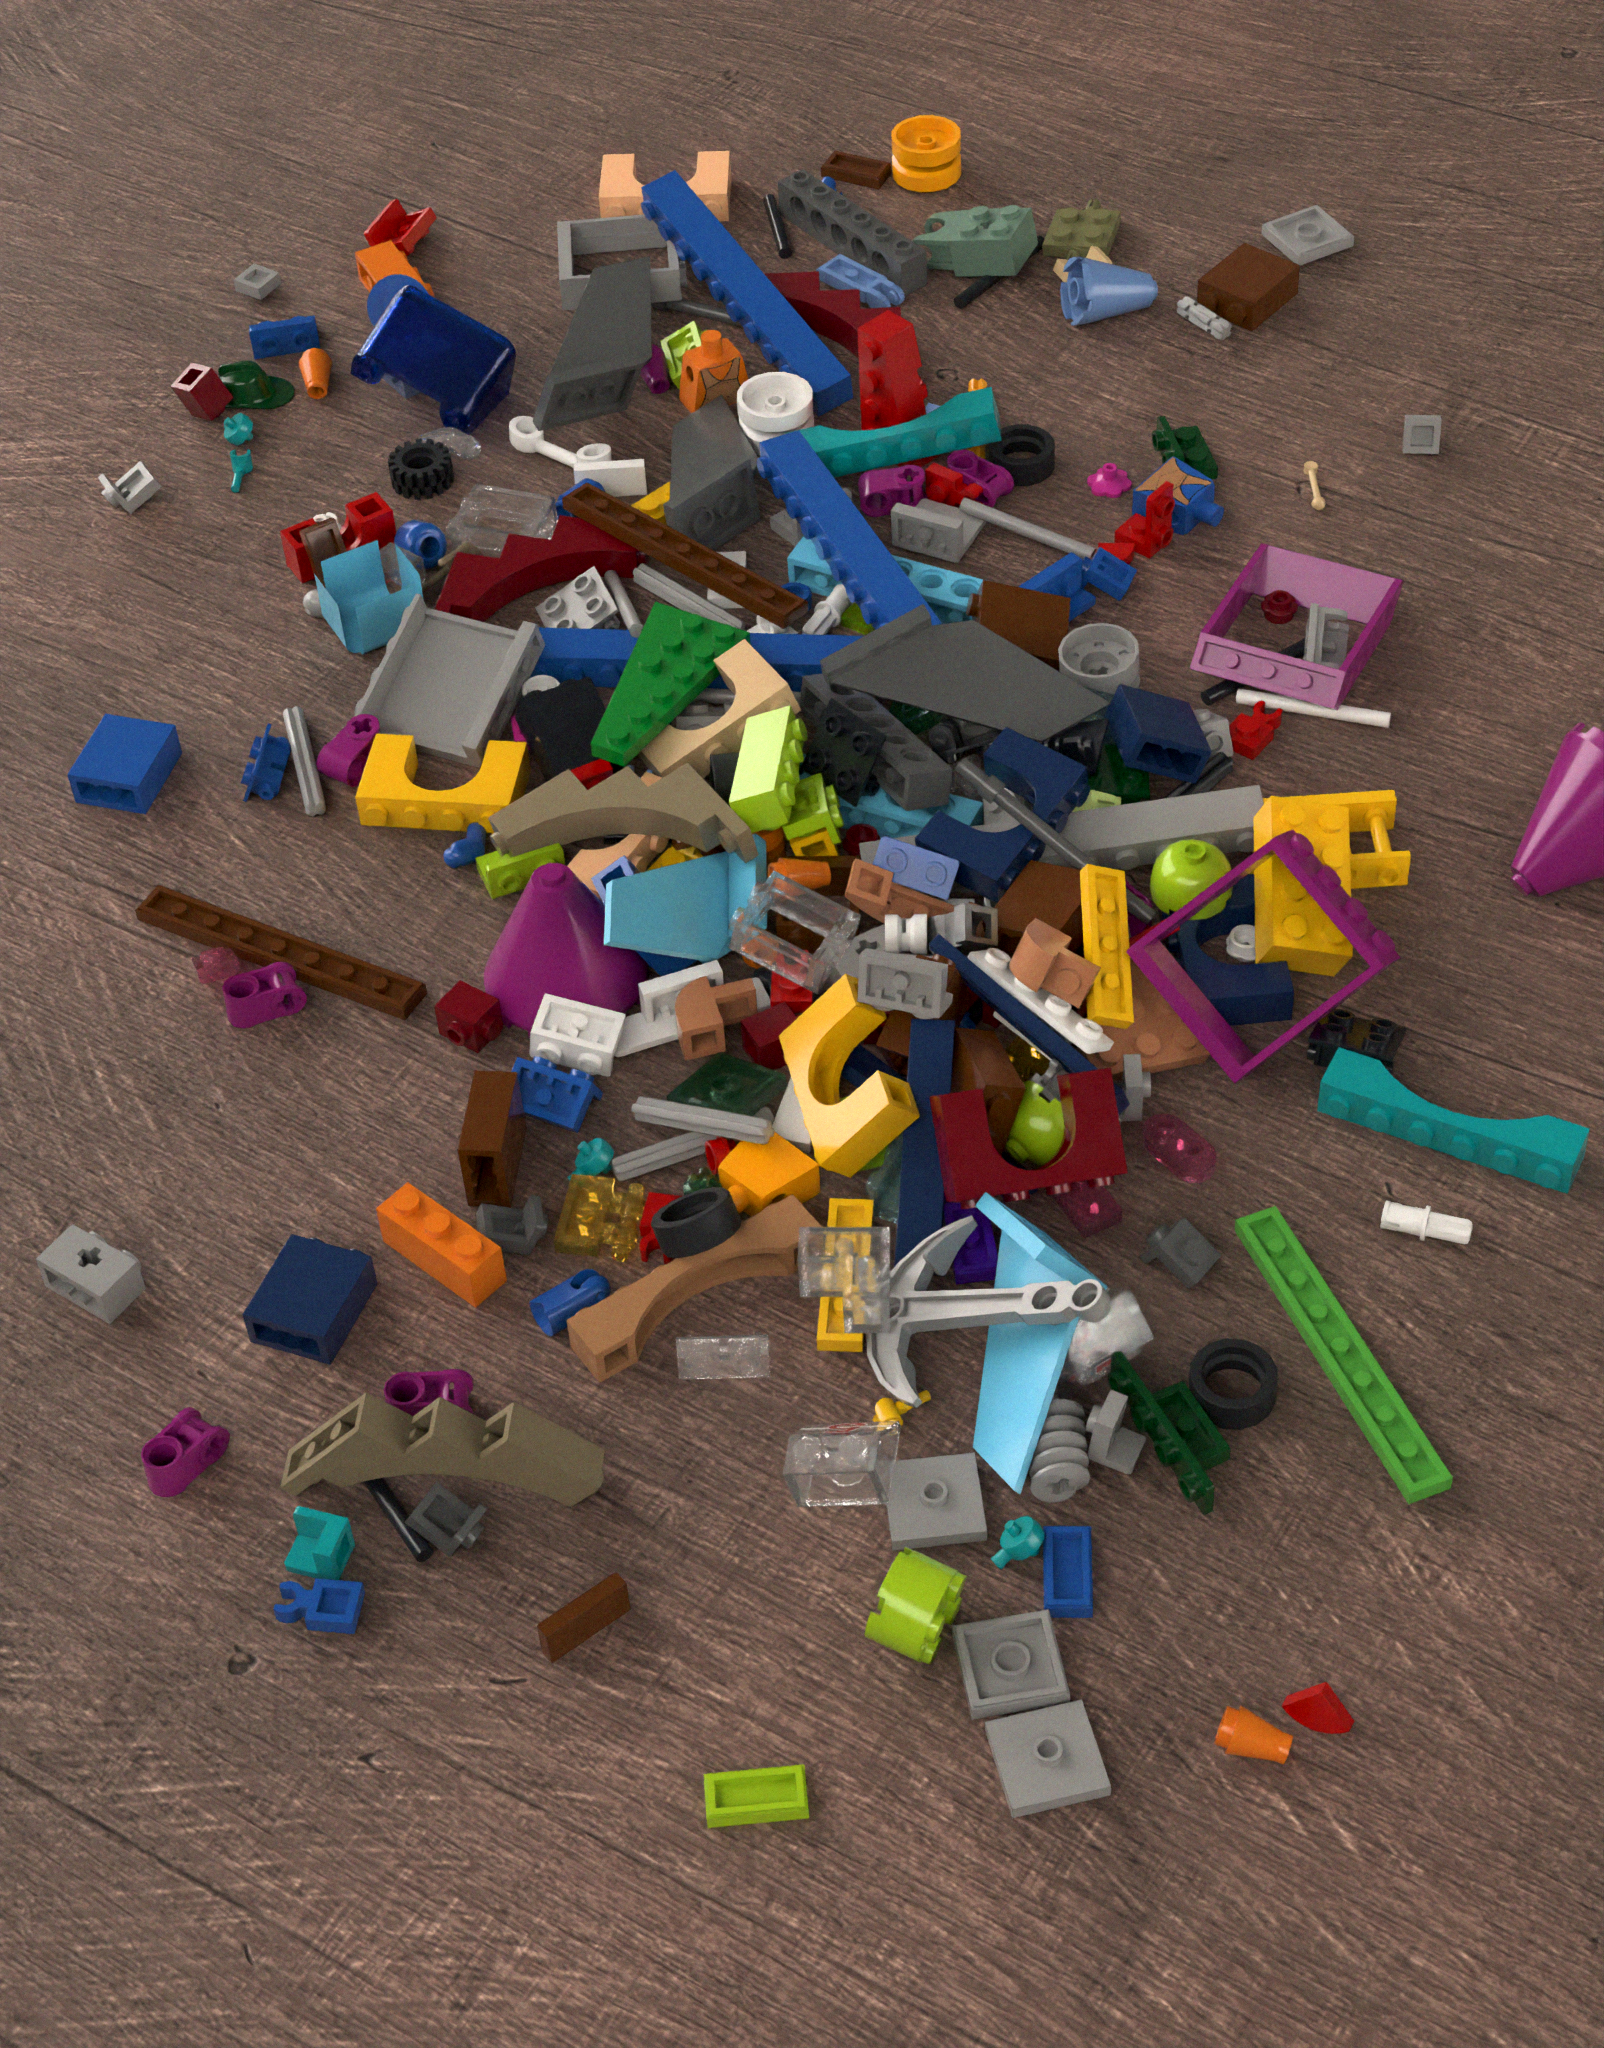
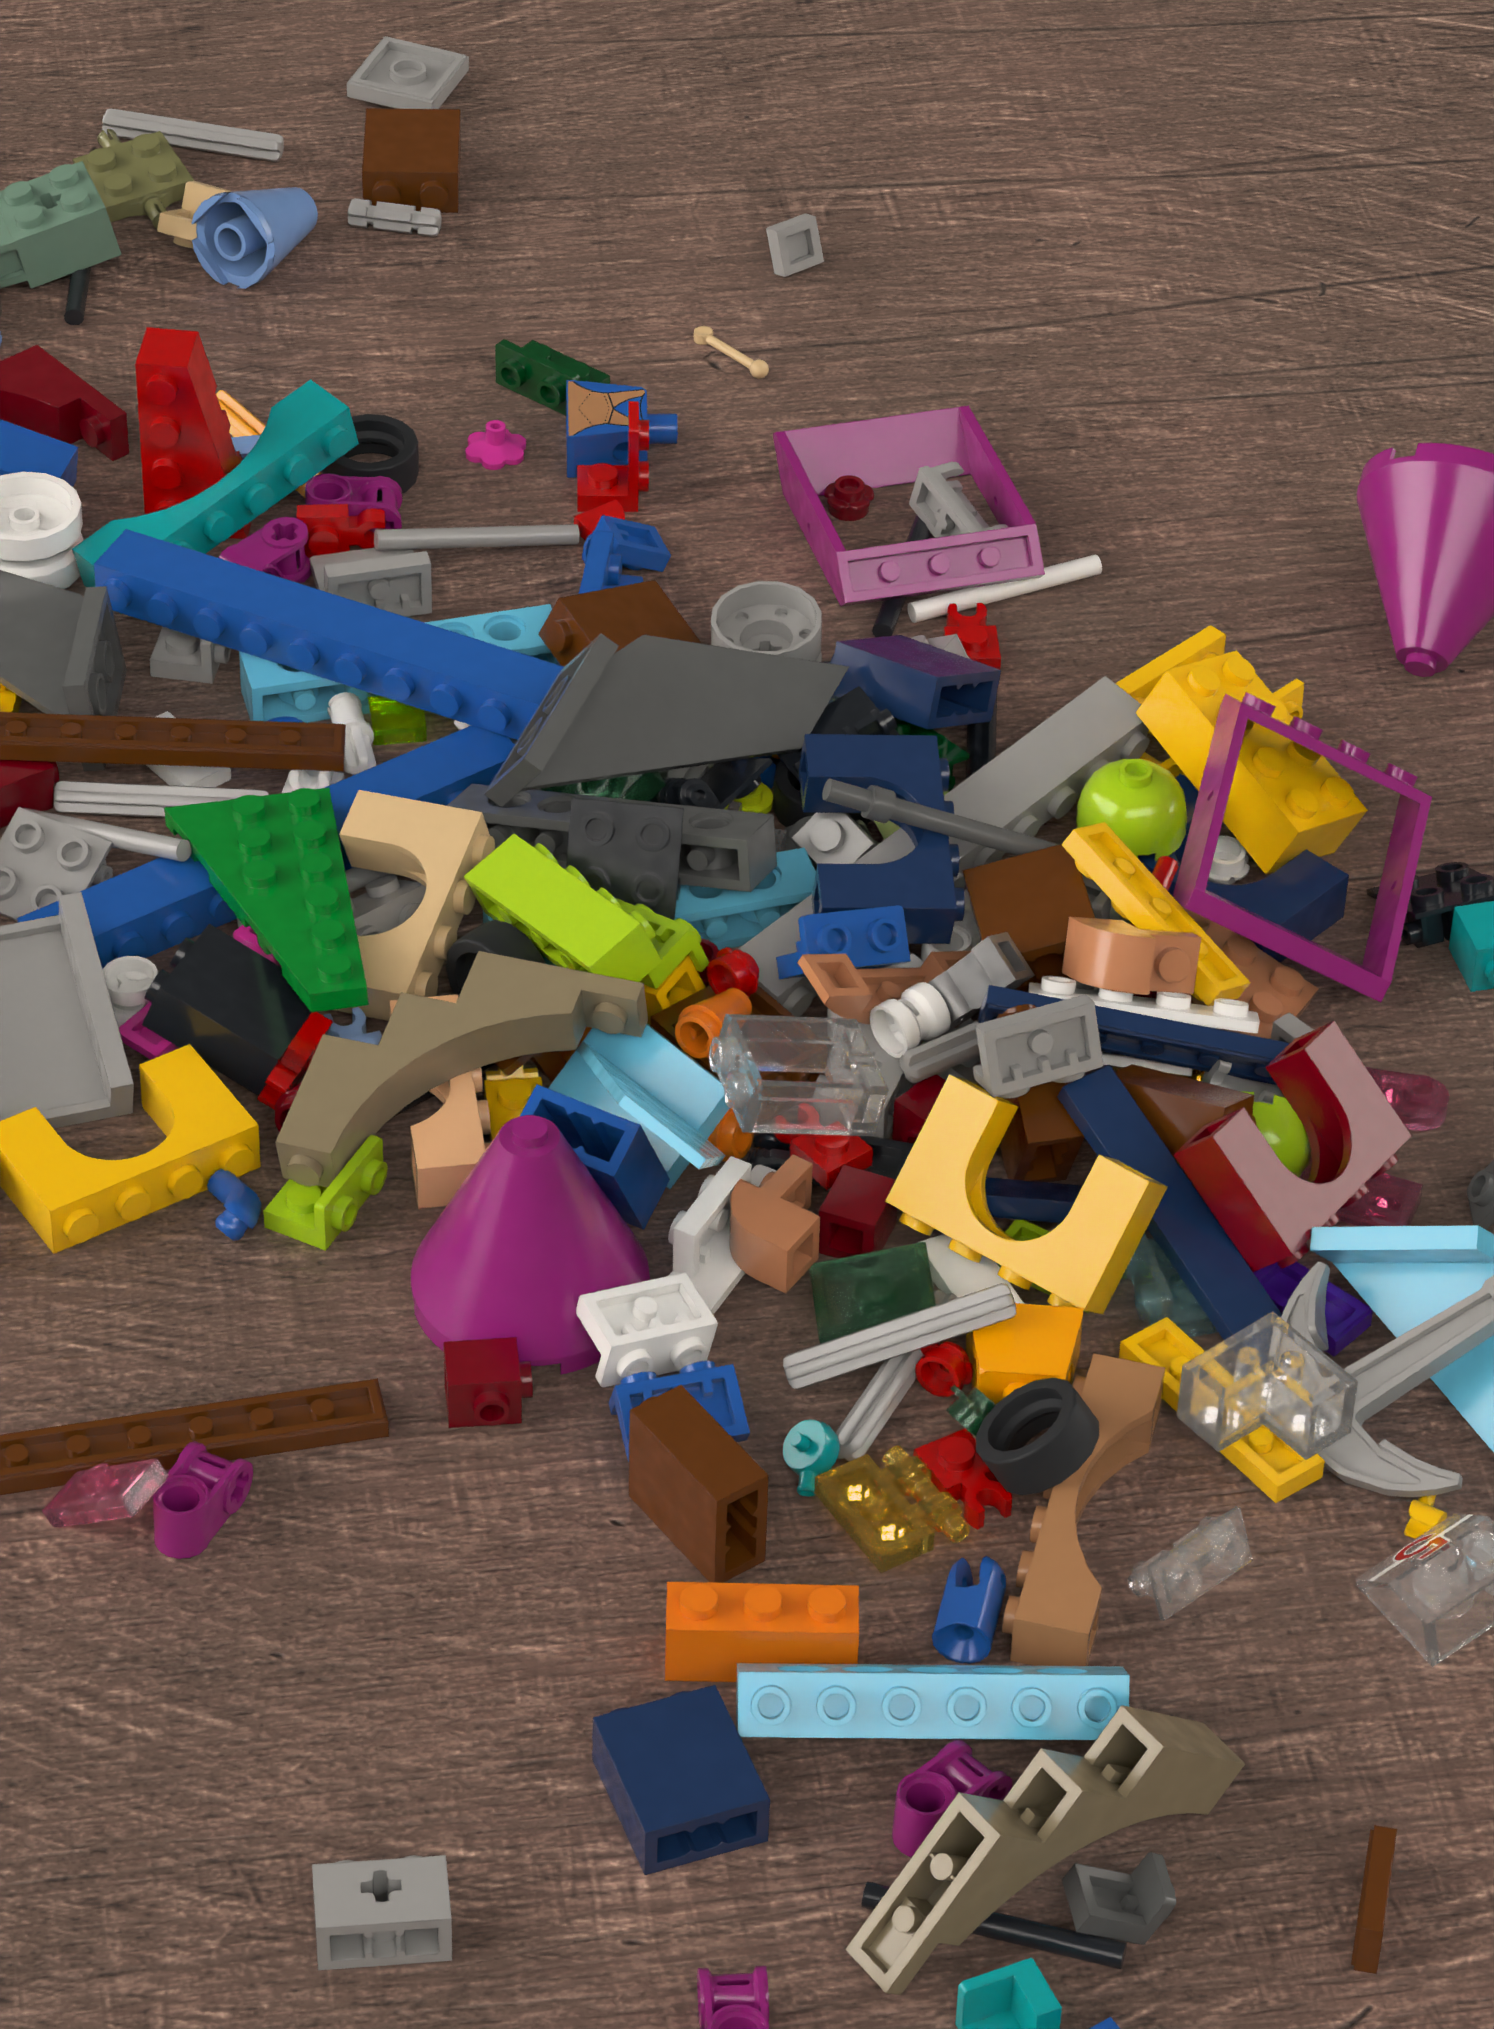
camera: 45 degrees left, 5 degrees down
(476, 1339) = (928, 1701): none -> medium azure brick
(513, 1228) = (825, 1557): dark grey bracket -> none
(842, 854) = (733, 970): none -> red plate
(1145, 222) = (196, 135): none -> light grey axle

